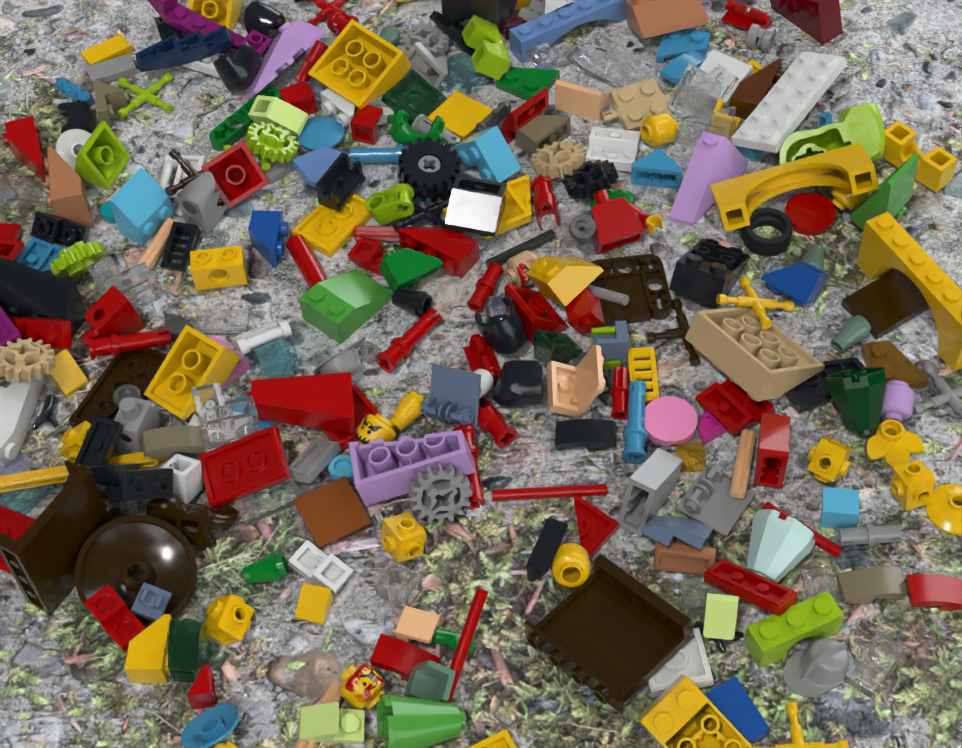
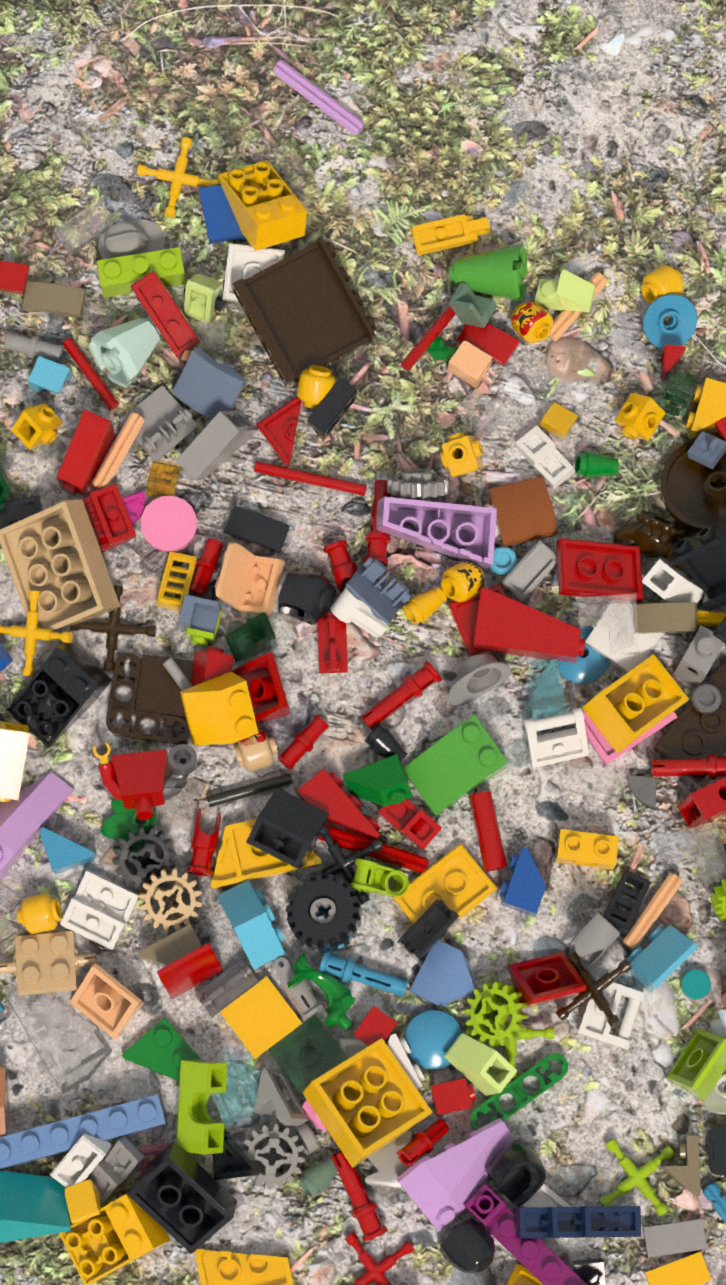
camera: 170 degrees left, 25 degrees up
(504, 332) = (302, 669): black piece -> none
(635, 433) = (208, 512): dark azure pin -> none

